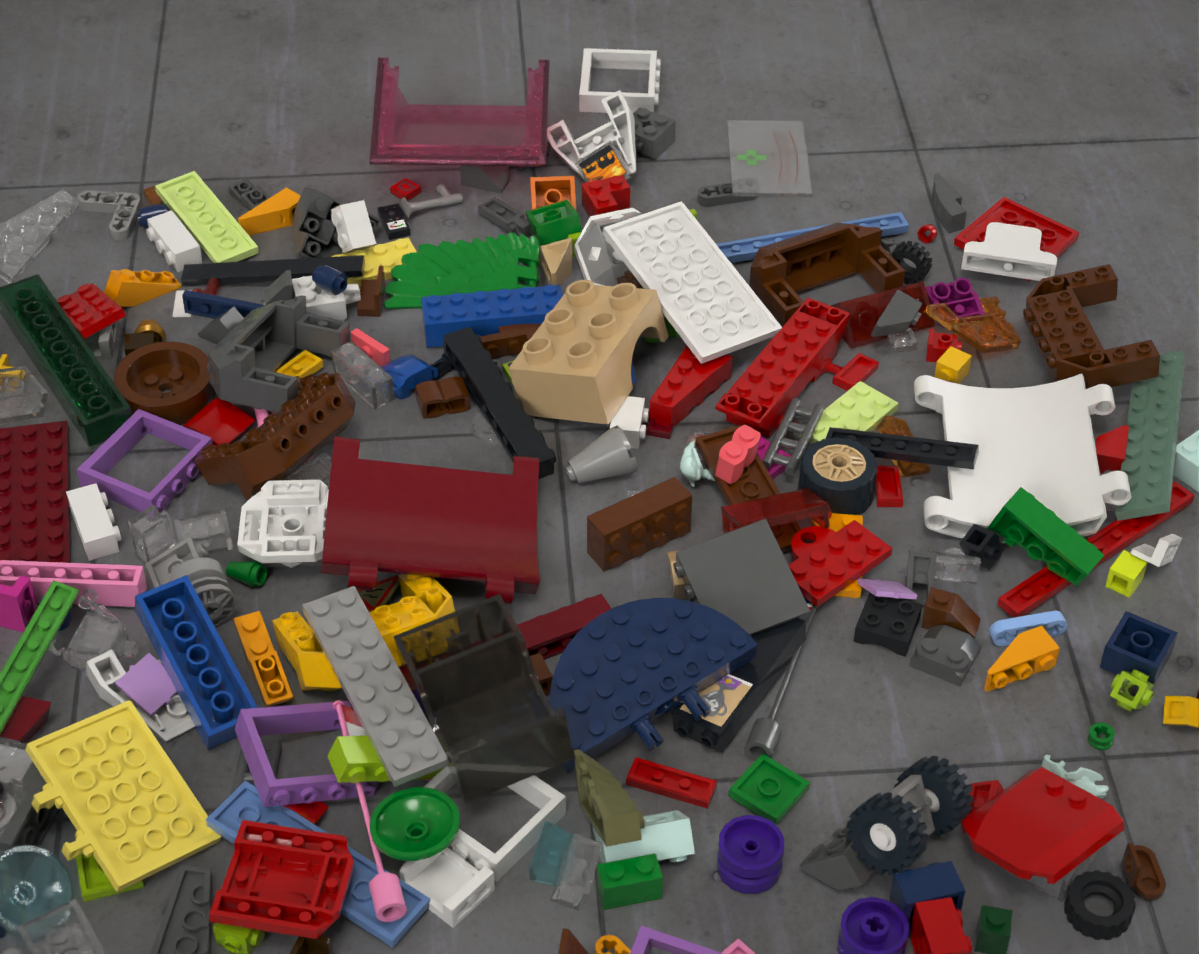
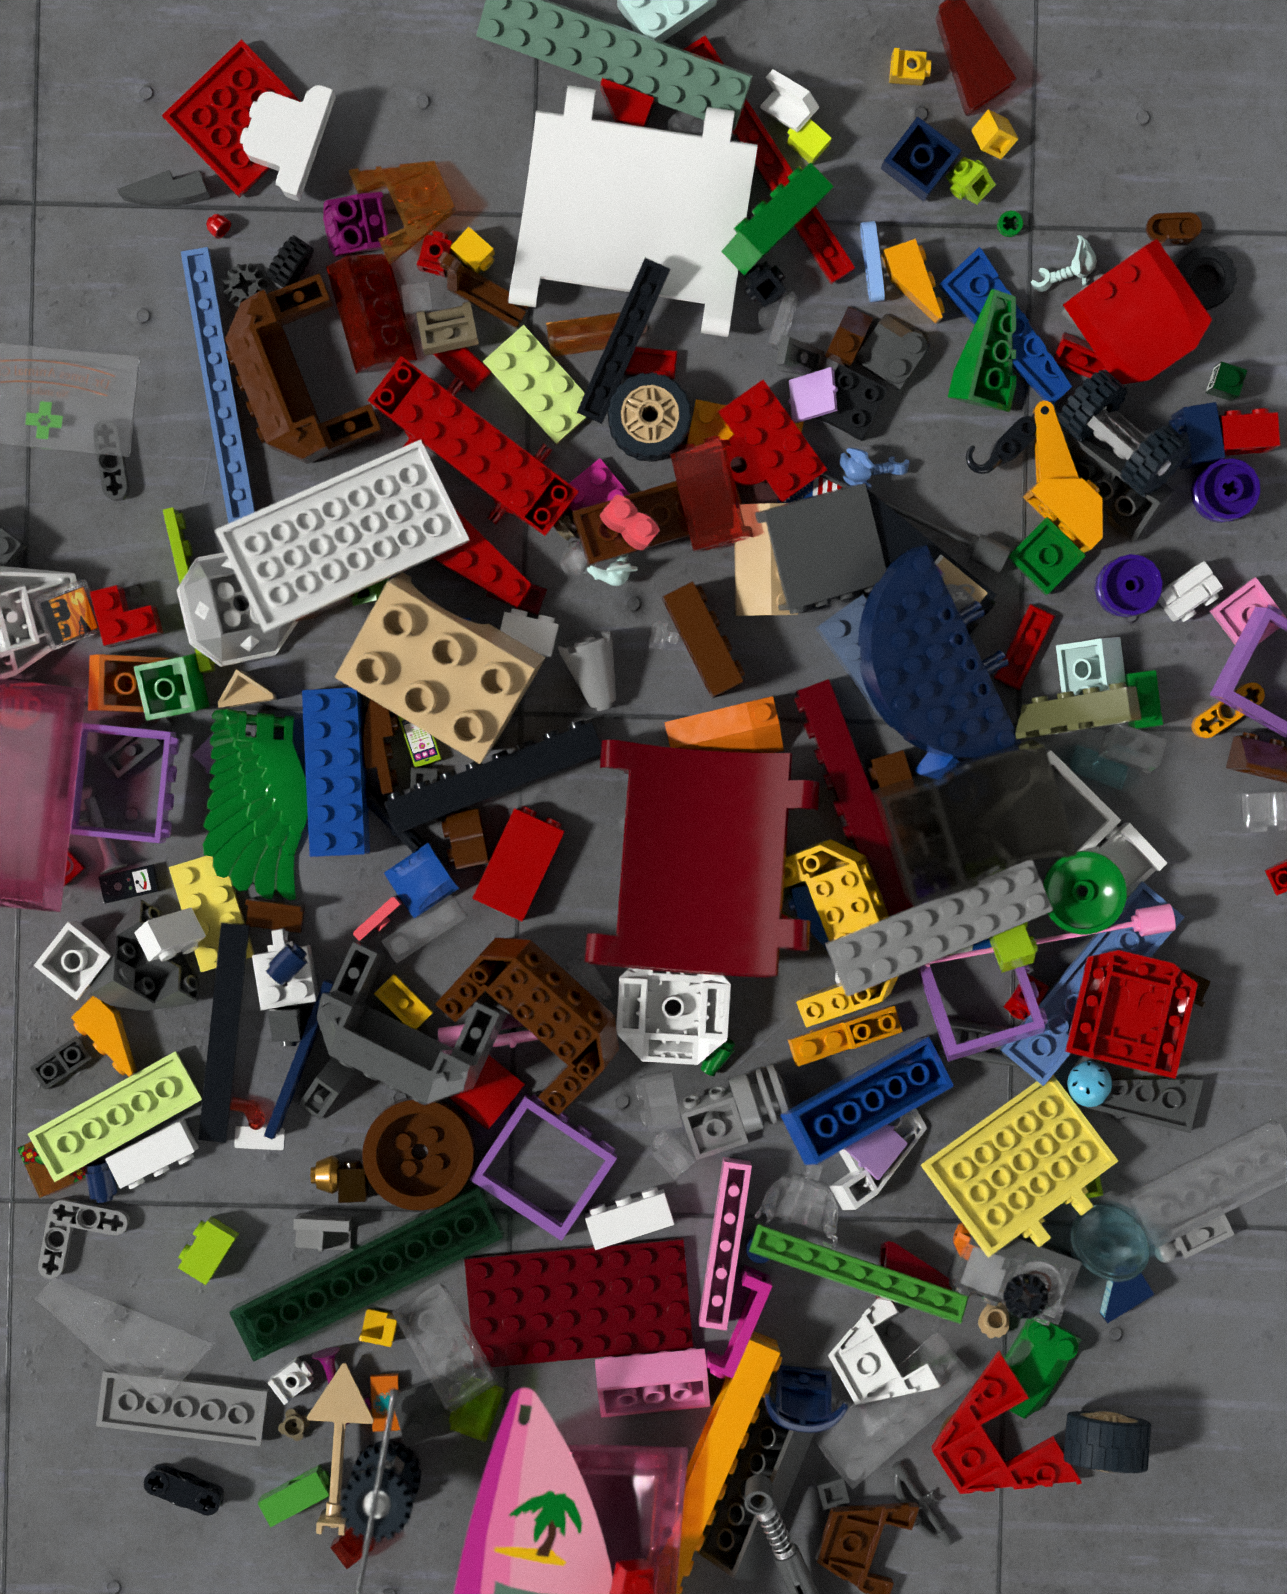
camera: 85 degrees left, 45 degrees up
(86, 270) = (207, 1250): none -> lime brick
(90, 309) = (290, 1248): red plate -> none
(136, 287) = (236, 1189): light orange slope -> none
(204, 865) = (1088, 1078): none -> medium azure helmet
(336, 183) = (73, 959): none -> white slope
(423, 426) = (519, 863): none -> red panel
(473, 178) = (165, 800): none -> medium lavender window
(561, 565) = (736, 728): none -> orange wedge
(754, 917) = (1190, 591): none -> white brick
(798, 446) = (560, 458): dark grey bar -> none
(823, 625) = (860, 468): none -> medium blue piece
(833, 780) = (1058, 490): none -> light orange slope
(881, 355) = (447, 334): none -> dark tan plate
(898, 315) = (399, 300): dark grey slope -> none
(924, 362) = (480, 291): none -> reddish brown hinge
(956, 716) = (986, 364): none -> green wedge
(1006, 728) = (968, 290): none -> blue wing
(1069, 341) = (451, 109): reddish brown wedge -> none

